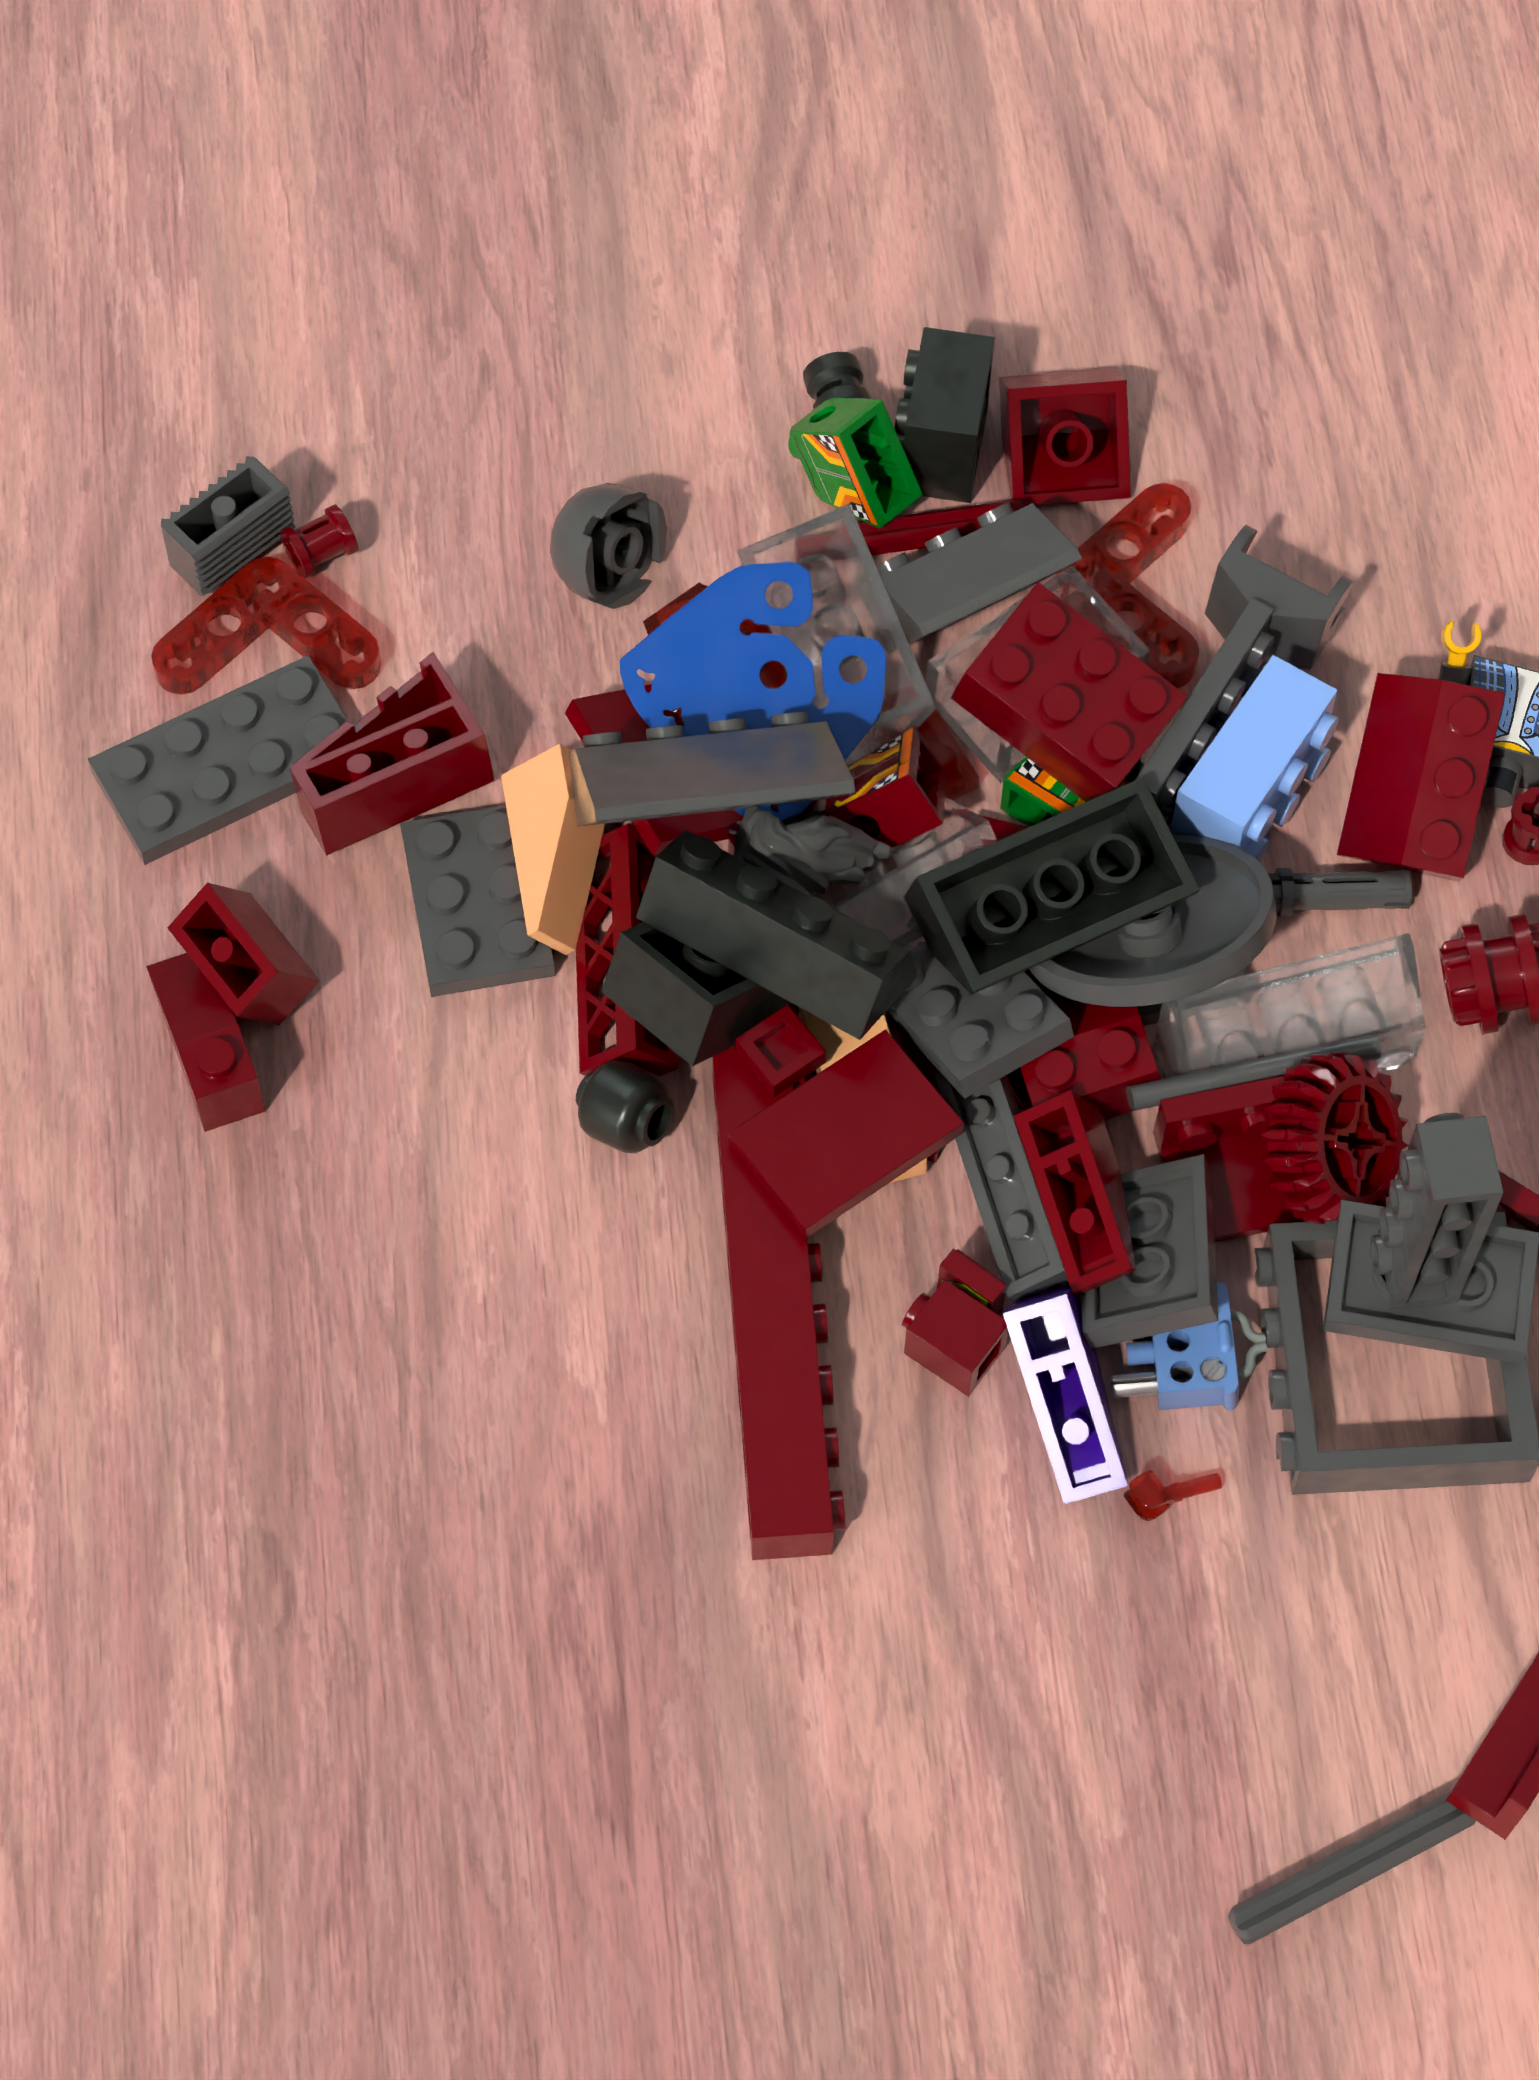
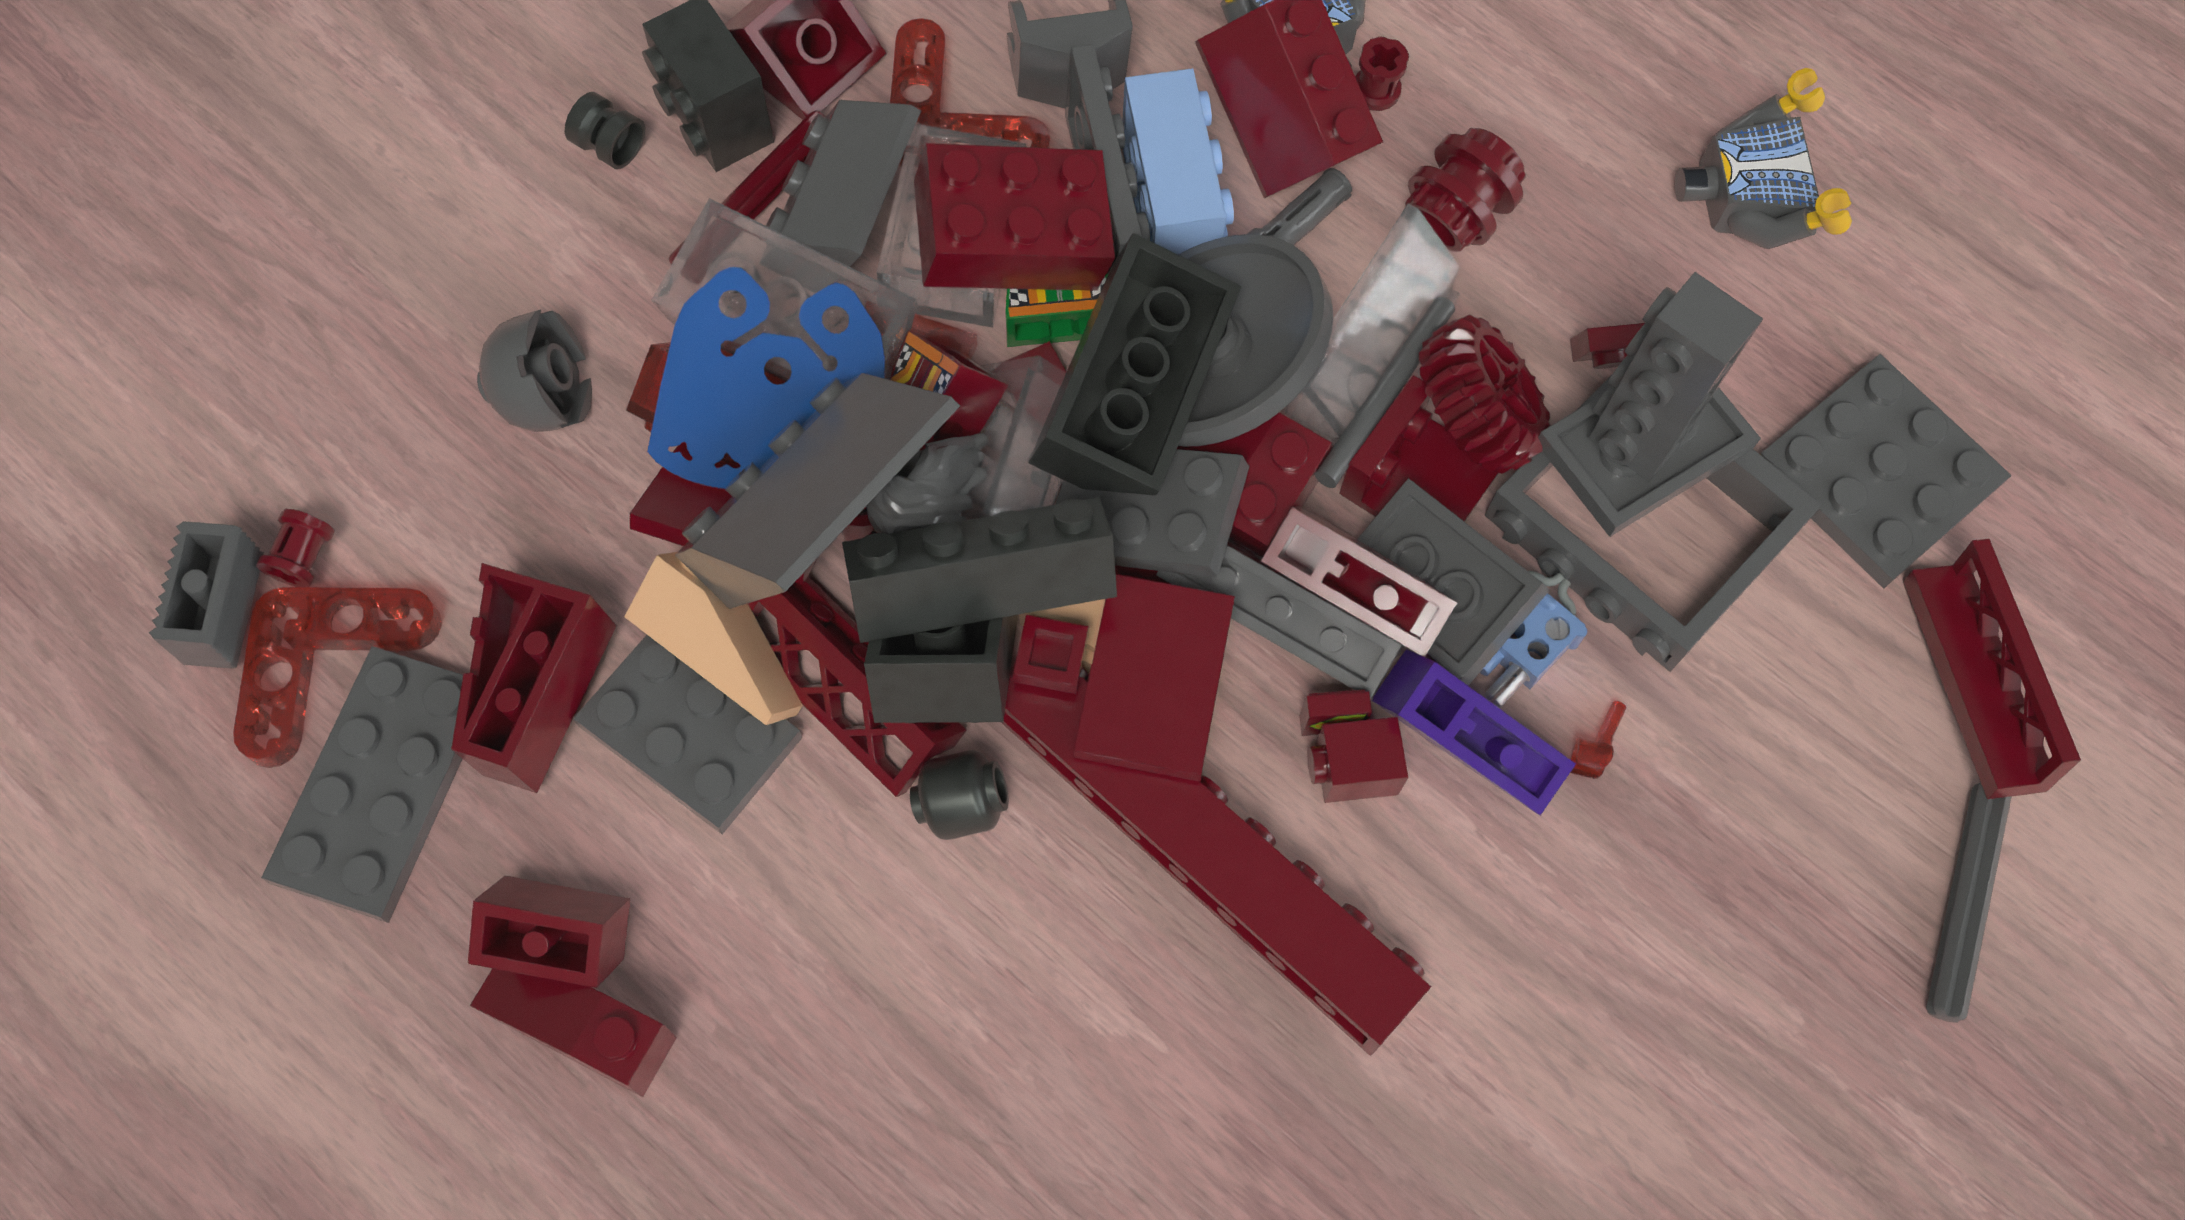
camera: 45 degrees left, 5 degrees up
(855, 458) = (668, 165): green torso -> none

